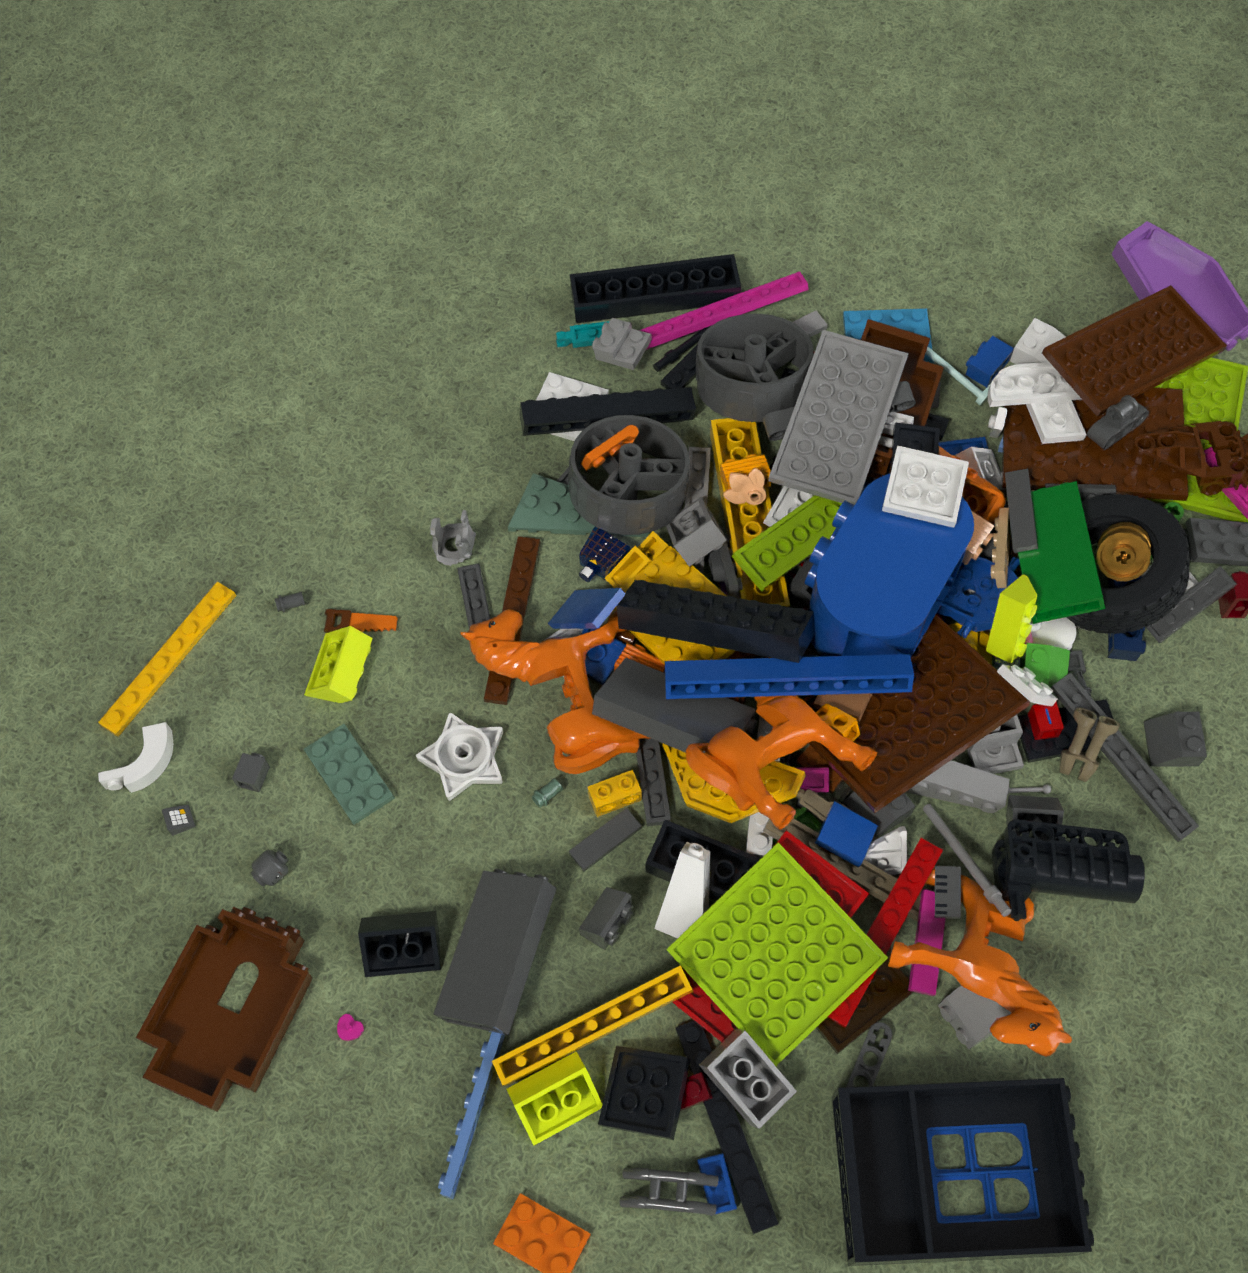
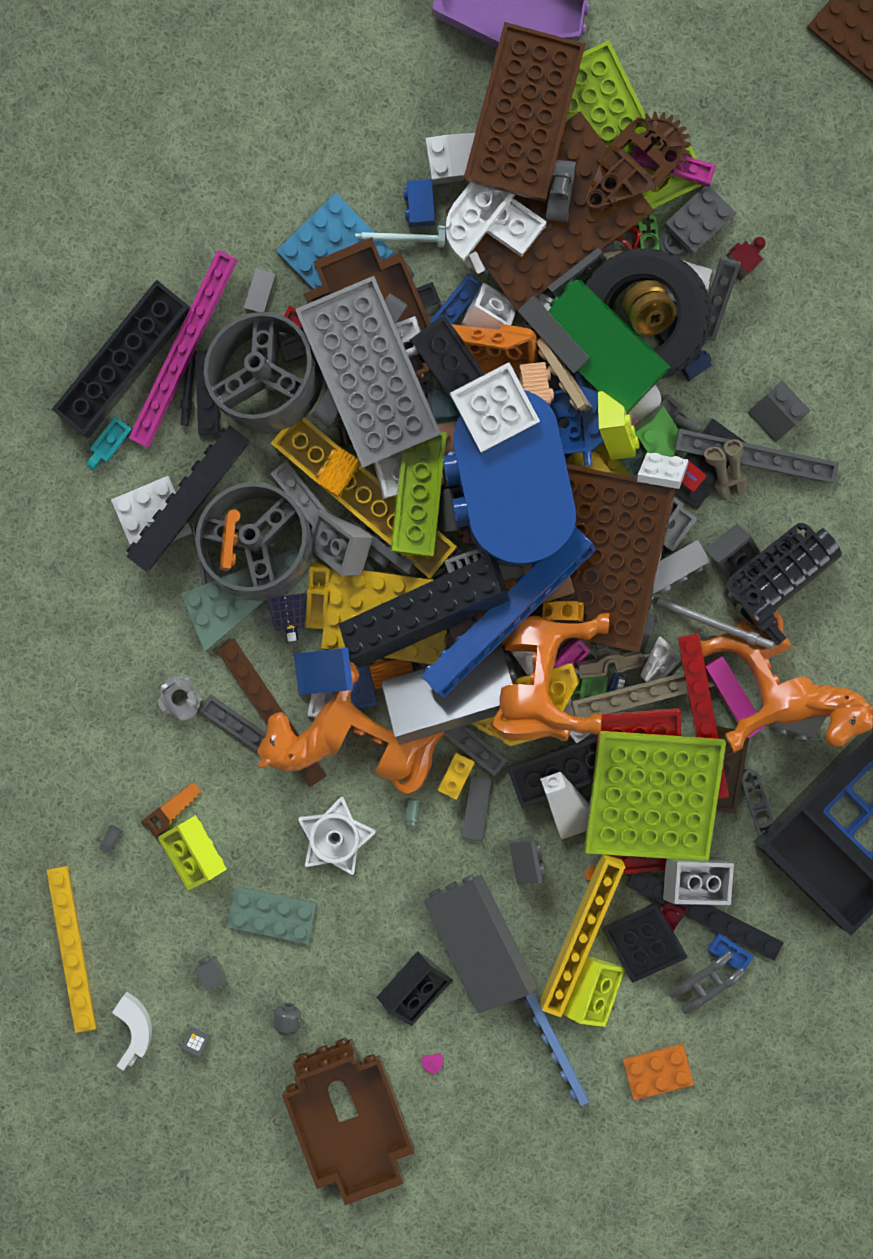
camera: 45 degrees left, 25 degrees up
(621, 344) = (145, 434): light grey plate -> none
(744, 486) = (355, 483): light nougat plate -> none
(846, 834) = (629, 675): blue tile -> none
(948, 892) = (722, 657): dark grey tile -> none
(1045, 789) = (723, 519): light grey hinge -> none

